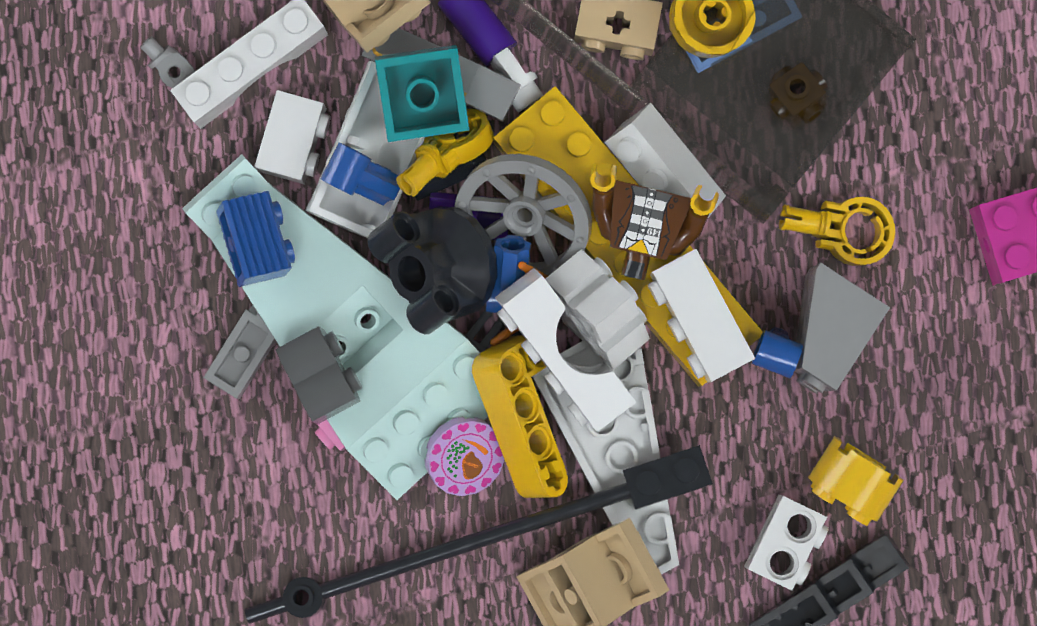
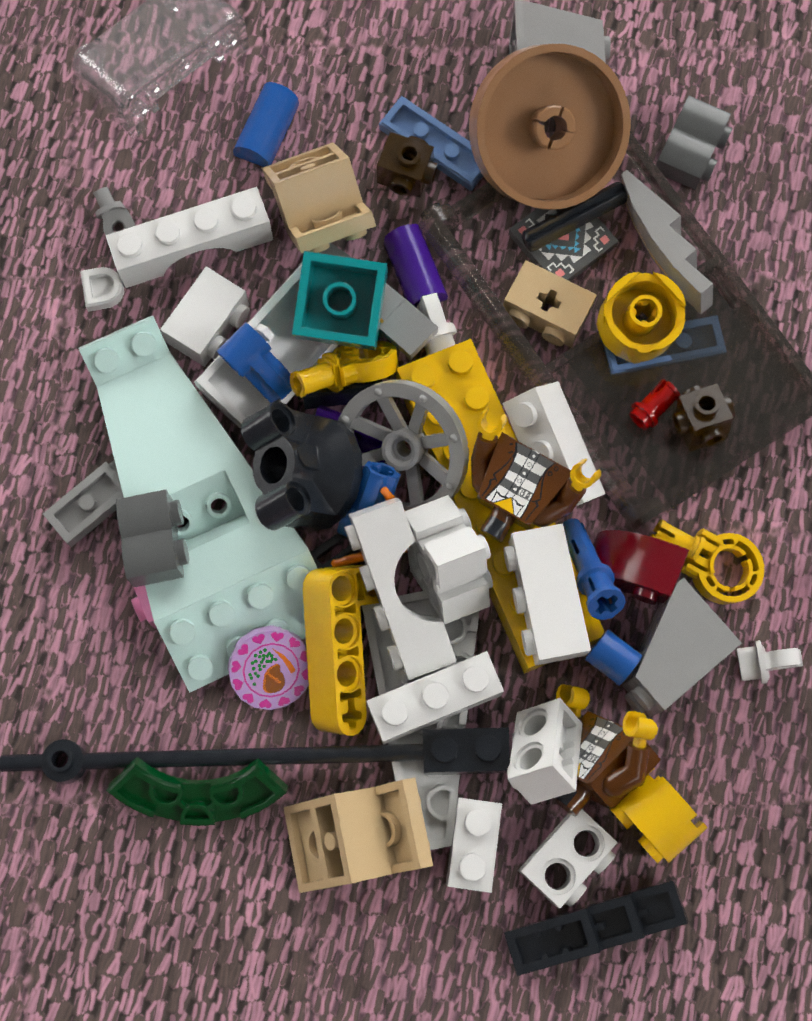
camera: 15 degrees right, 10 degrees down
(178, 137) = (101, 288): none -> white tile
(255, 238) = (135, 391): blue brick -> none
(436, 595) = (197, 800): none -> dark green tile
(625, 439) = (435, 697): none -> white brick
(699, 558) = (474, 845): none -> white brick
(739, 285) = (594, 578): none -> blue pin
(739, 457) = (545, 751): none -> white brick
(747, 94) = (654, 405): none -> red pin
(771, 259) = (641, 563): none -> dark red brick
(789, 445) = (611, 755): none -> torso
(910, 311) = (756, 662): none -> white piece

